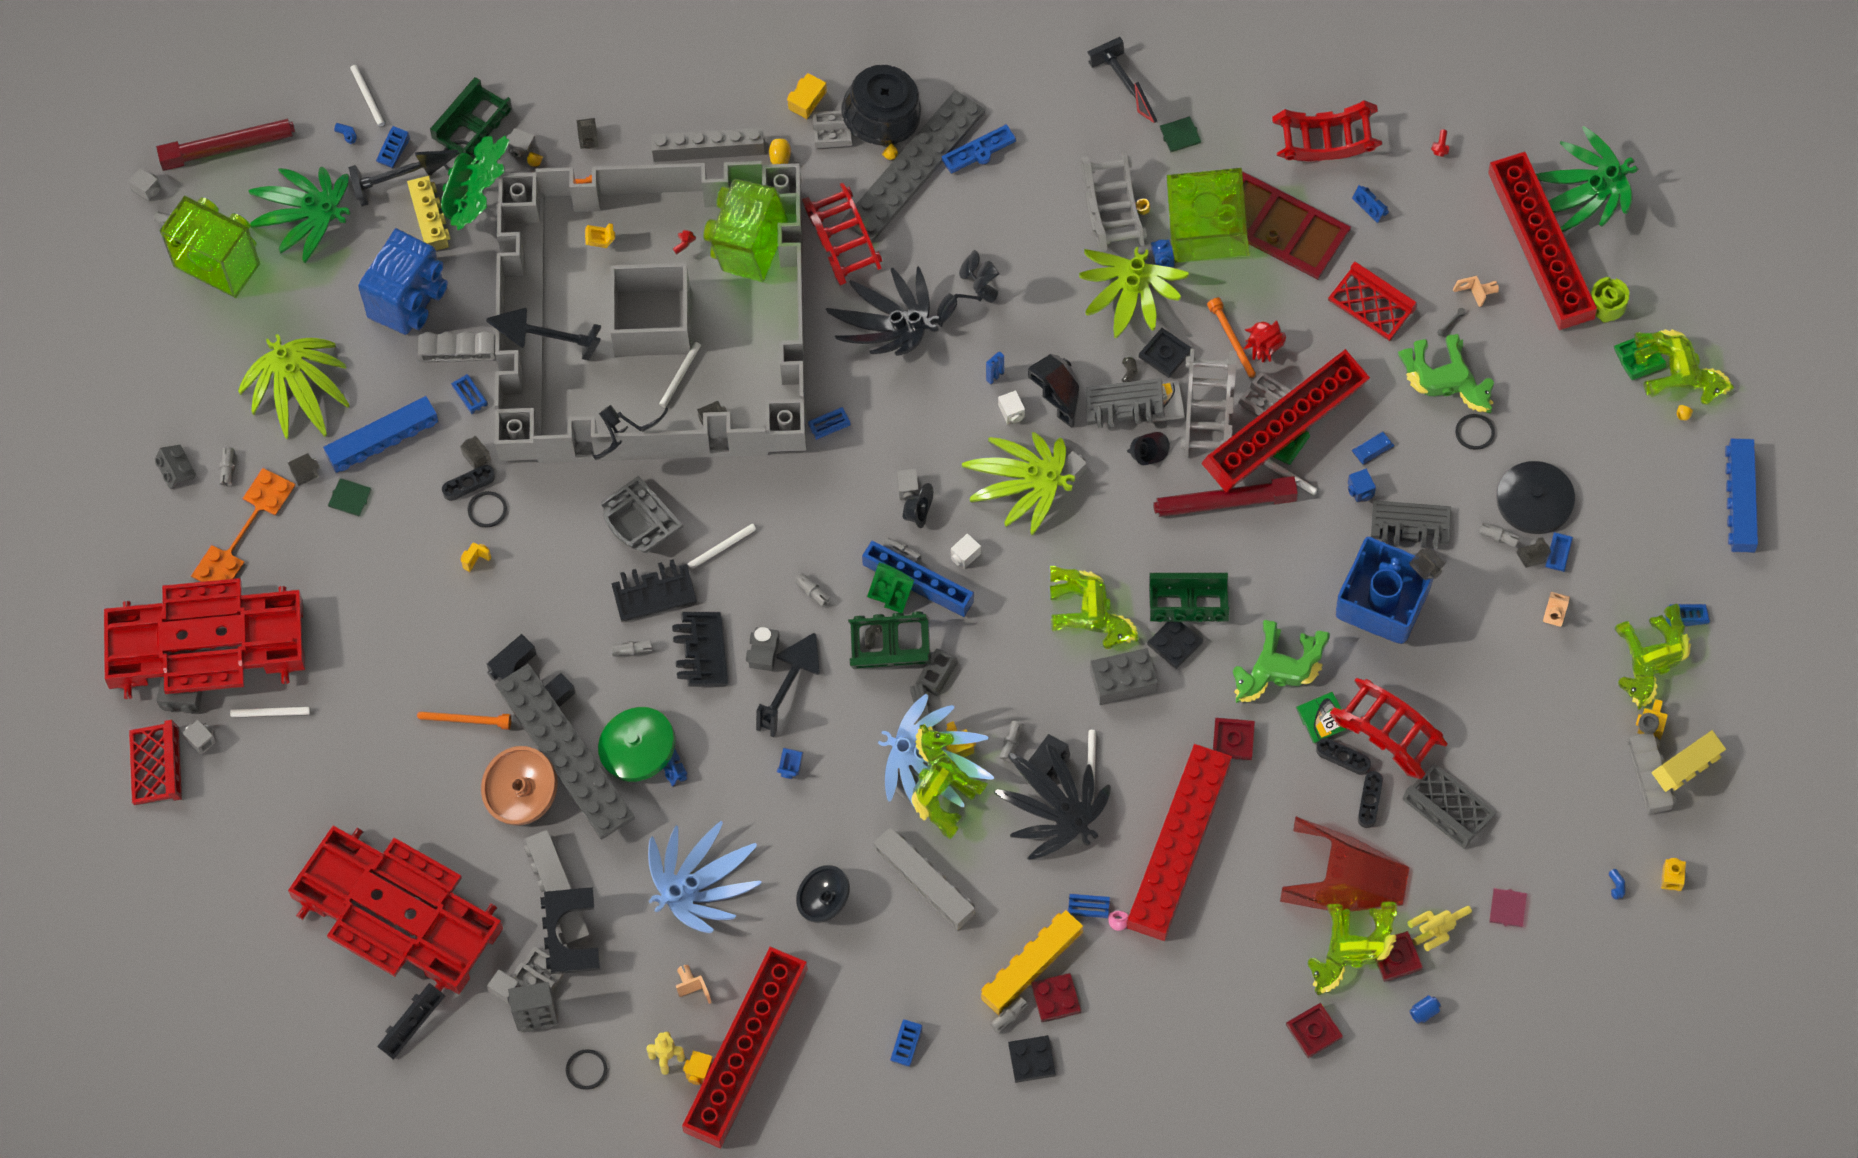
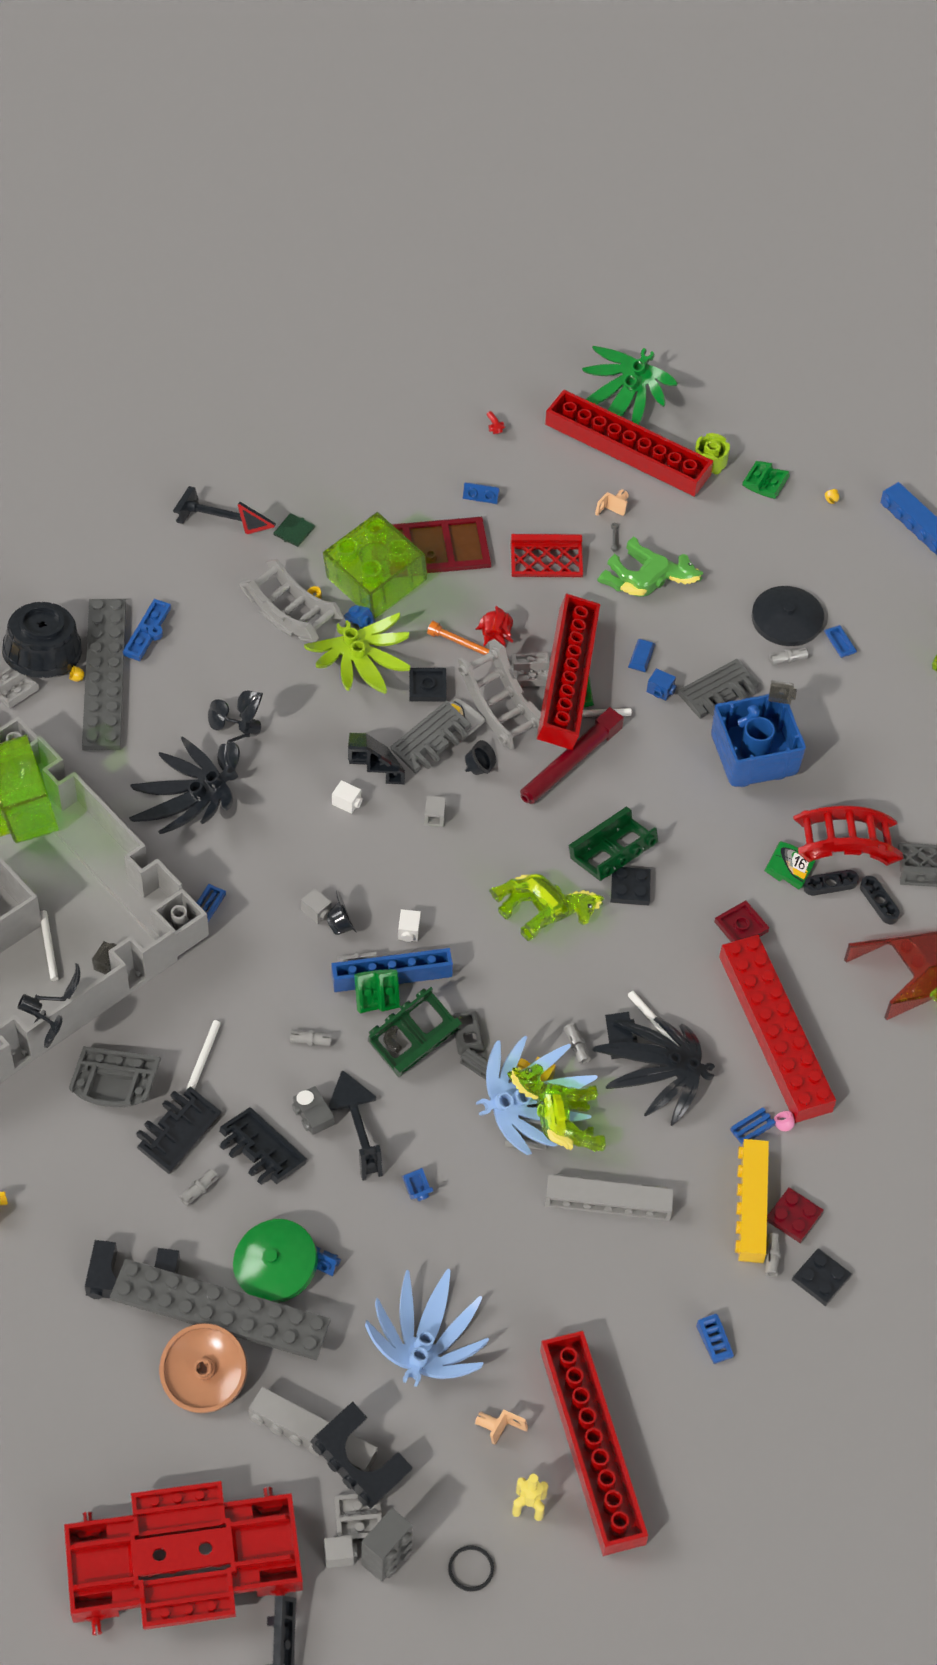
camera: 45 degrees left, 10 degrees down
(503, 721) = (139, 1326): orange piece -> none
(697, 1067) = (568, 1490): yellow brick -> none
(823, 893) = (531, 1264): black dish -> none
(825, 233) = (84, 763): red fence -> none
(997, 364) = (309, 774): blue tile -> none
(1037, 474) = (414, 829): lime plant -> none
(1123, 676) = (618, 935): dark grey brick -> none
(1131, 366) = (406, 709): clear smoke arm -> none
(1279, 667) = (727, 849): bright green animal -> none
(1325, 121) = (396, 456): red fence -> none
(1474, 416) = (702, 587): black piece -> none
(1535, 553) = (827, 651): clear smoke bracket -> none
(1556, 609) = (878, 680): light nougat bracket -> none
(1682, 363) = (803, 464): clear neon green animal -> none

